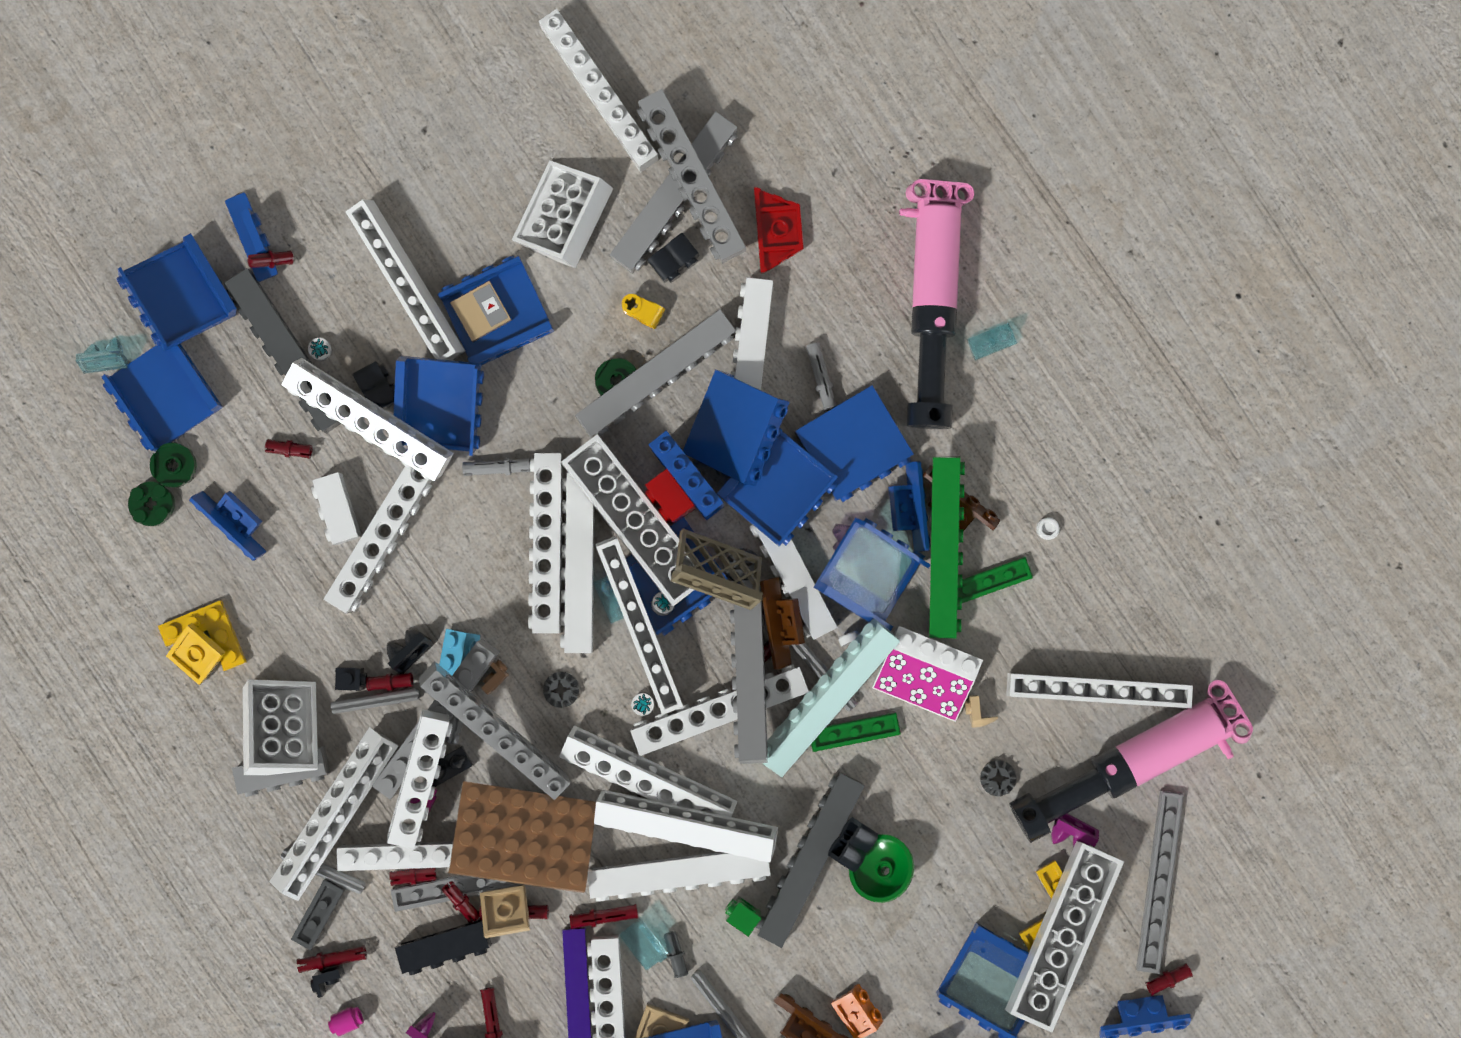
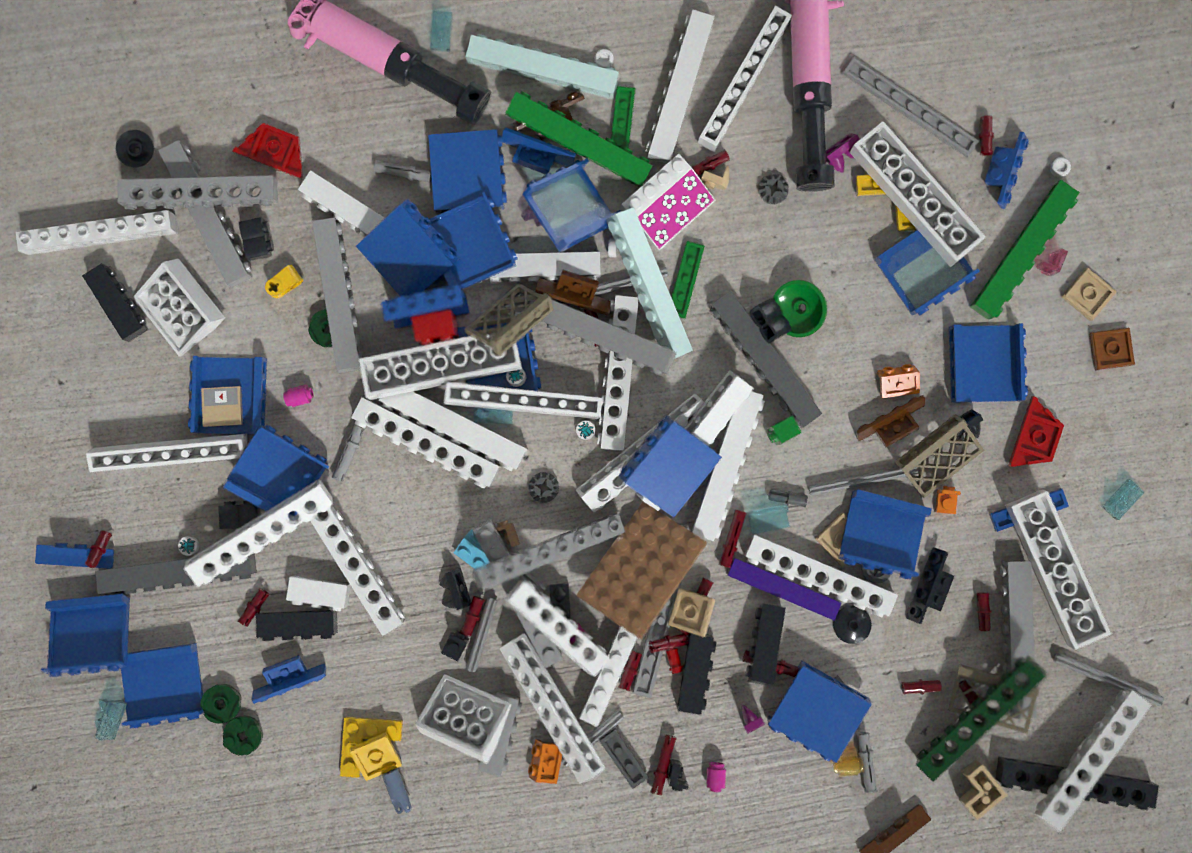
camera: 70 degrees left, 0 degrees up
(170, 693) = (396, 791): none -> sand blue piece
(274, 833) = (545, 762): none -> orange bracket
(293, 502) = (296, 623): none -> black brick
(444, 918) = (674, 661): none -> red pin
(509, 1006) = (766, 644): none -> black brick
(531, 385) = (298, 395): none -> dark pink brick
(535, 145) = (115, 302): none -> black brick
(645, 813) = (669, 466): none -> panel
(702, 74) = (129, 142): none -> black dish
(1003, 705) = (711, 162): none -> dark red pin
(1006, 468) = (542, 66): none -> light aqua brick
(1058, 625) = (680, 87): none -> white brick

